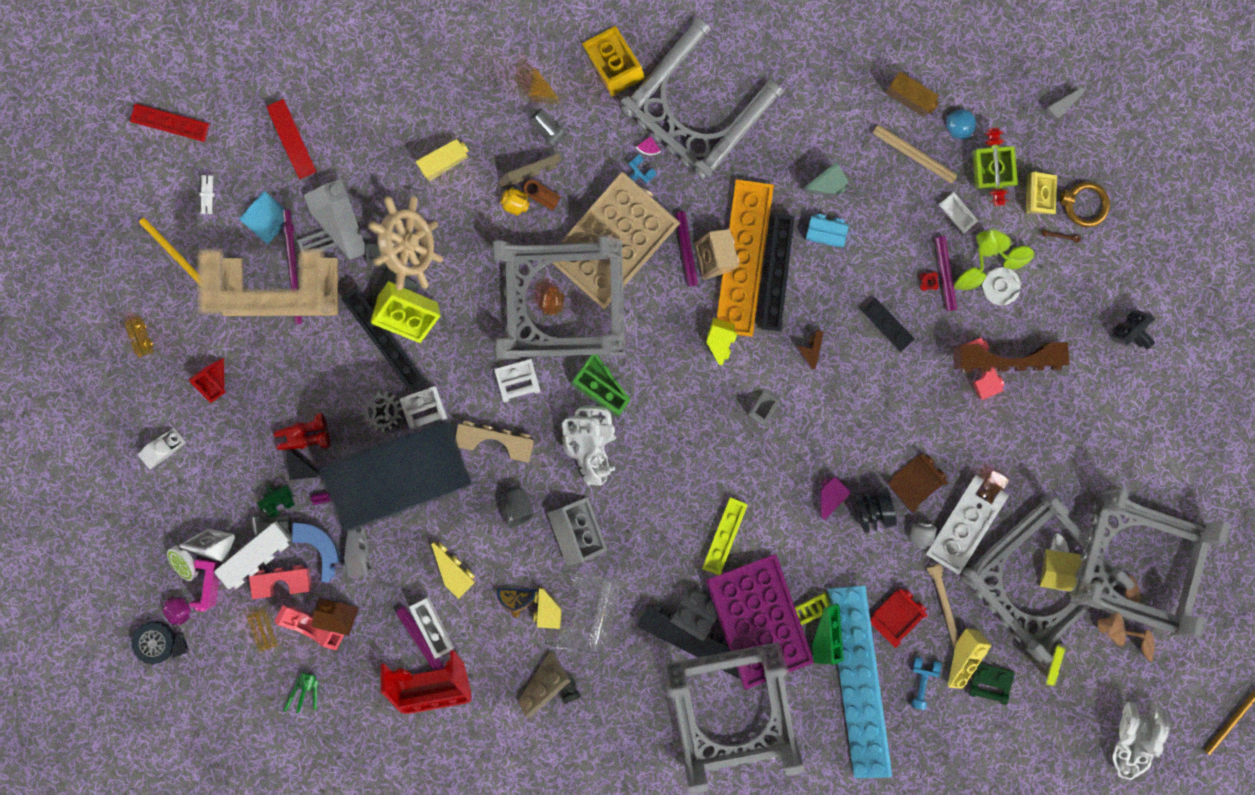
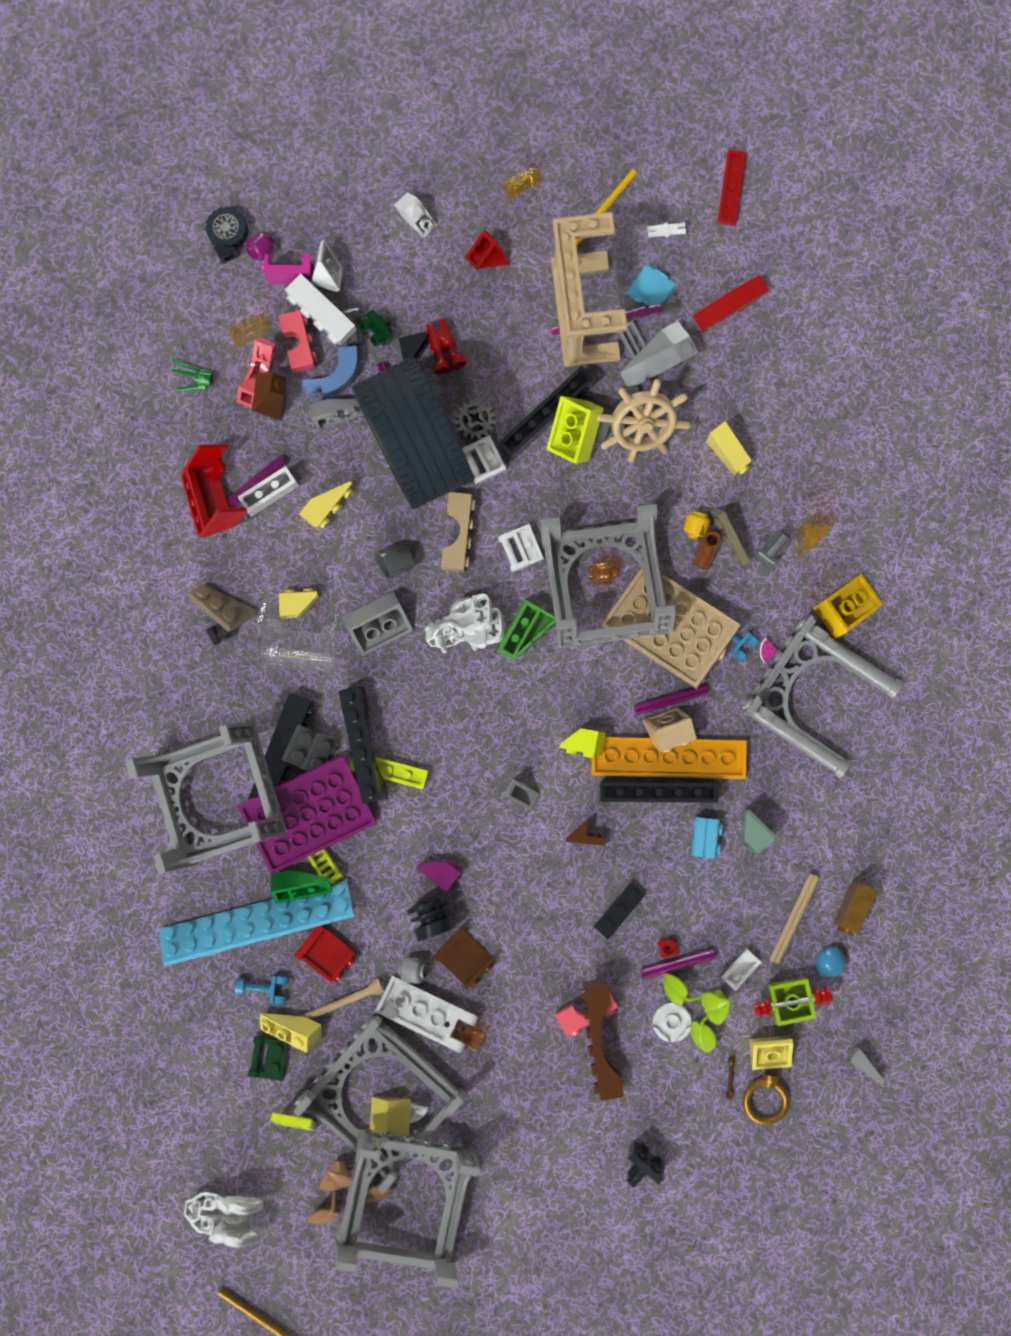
camera: 90 degrees right, 5 degrees down
(182, 563) = (306, 245): tile -> none
(515, 599) = (304, 570): shield -> none
(729, 556) = (368, 775): none -> black arch

